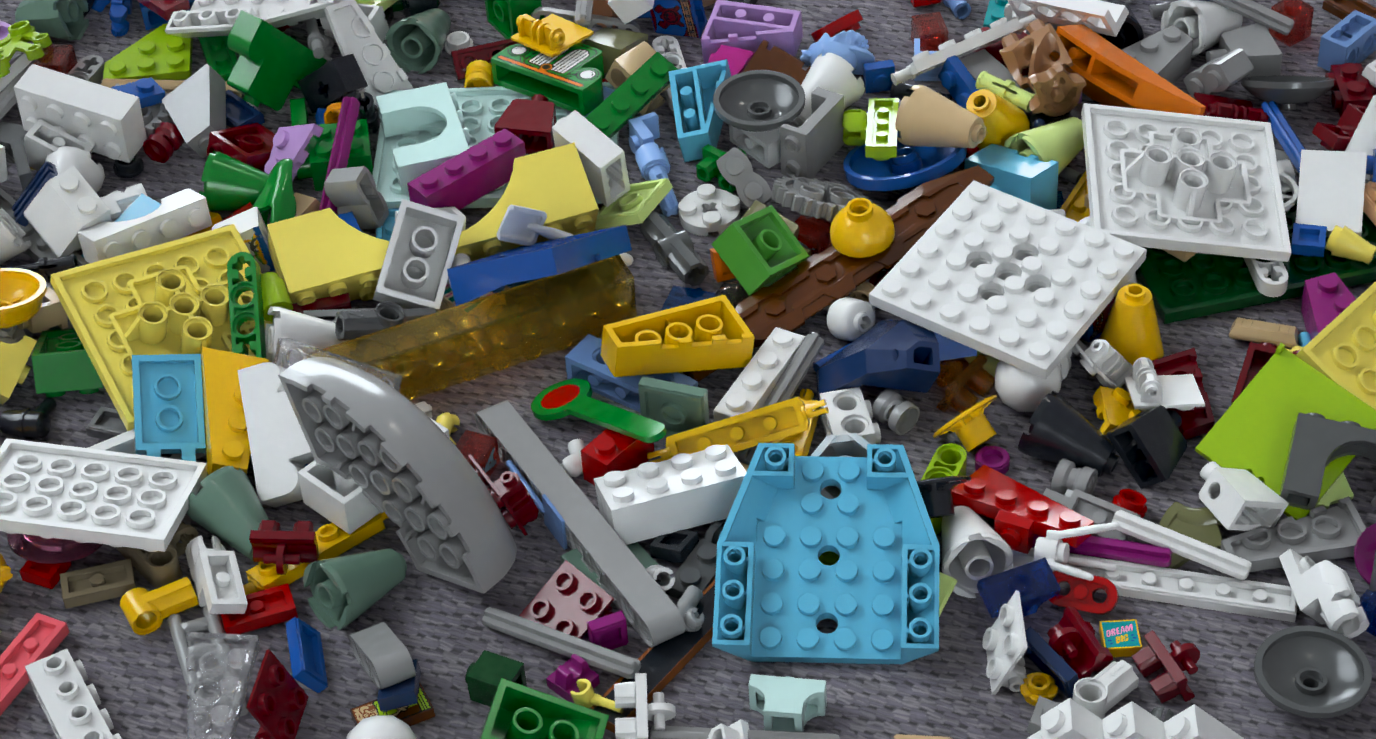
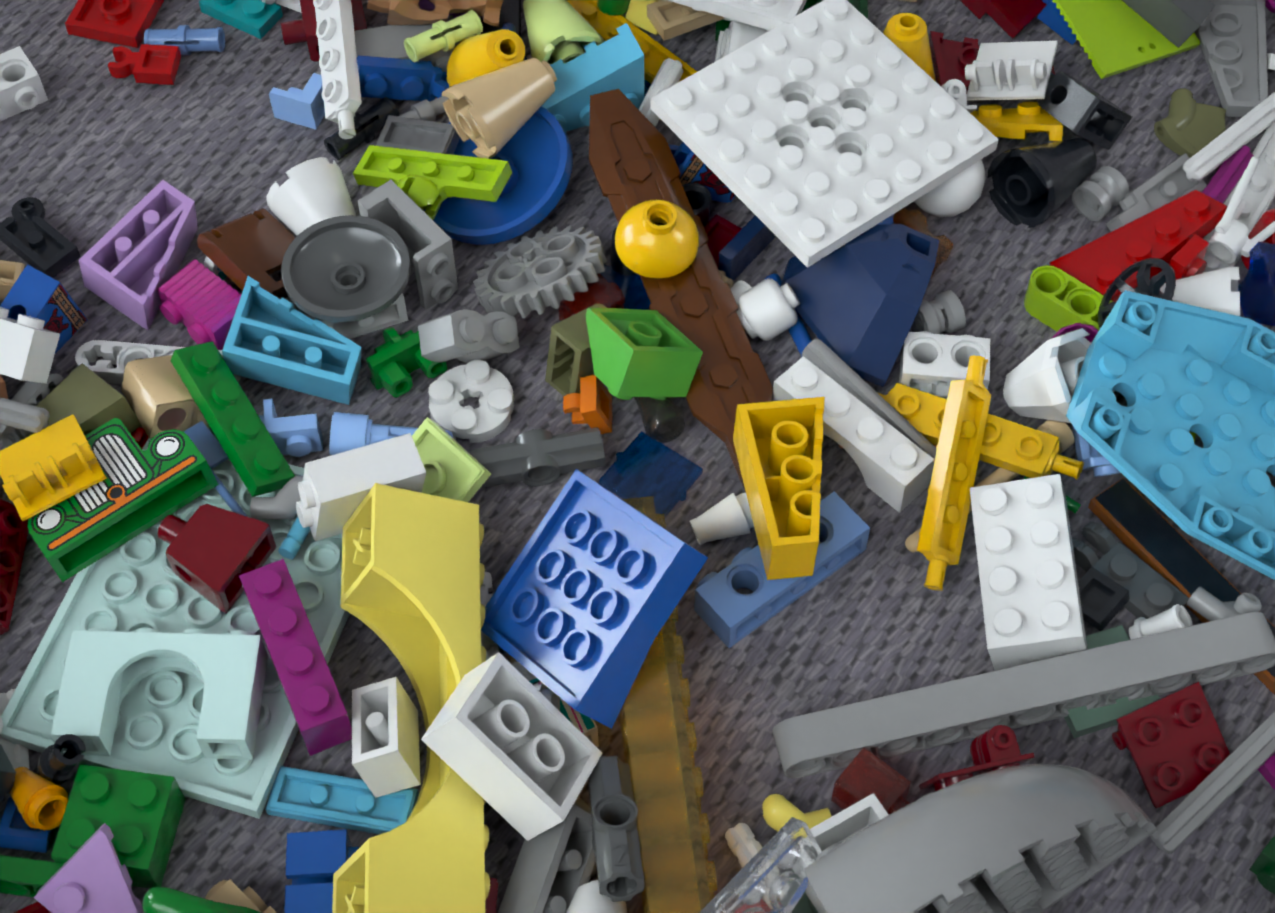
camera: 75 degrees left, 15 degrees up
(341, 143) = (182, 827): magenta axle -> none
(356, 191) = (262, 820): light grey brick -> none
(479, 74) = (36, 598): yellow wheel -> none
(525, 224) = (490, 579): white piece -> none
(552, 518) = (1020, 720): medium blue piece -> none
(573, 463) = (899, 668): white arm -> none
(575, 399) = (790, 656): green piece -> none
(609, 631) = (1234, 708): magenta tile -> none
(613, 452) = (919, 616): red brick -> none
(673, 404) = (883, 530): sand green tile -> none
(845, 23) = (177, 163): red plate -> none
(848, 45) = (254, 175): light blue hair -> none
(878, 76) = (307, 145): blue plate -> none
(930, 30) = (250, 81): clear red brick -> none
(971, 425) = (992, 252): yellow wheel -> none
(993, 457) = (1032, 254): magenta tile -> none
(1131, 501) = (1146, 160): red plate -> none
(1239, 498) = (1186, 68): white torso -> none

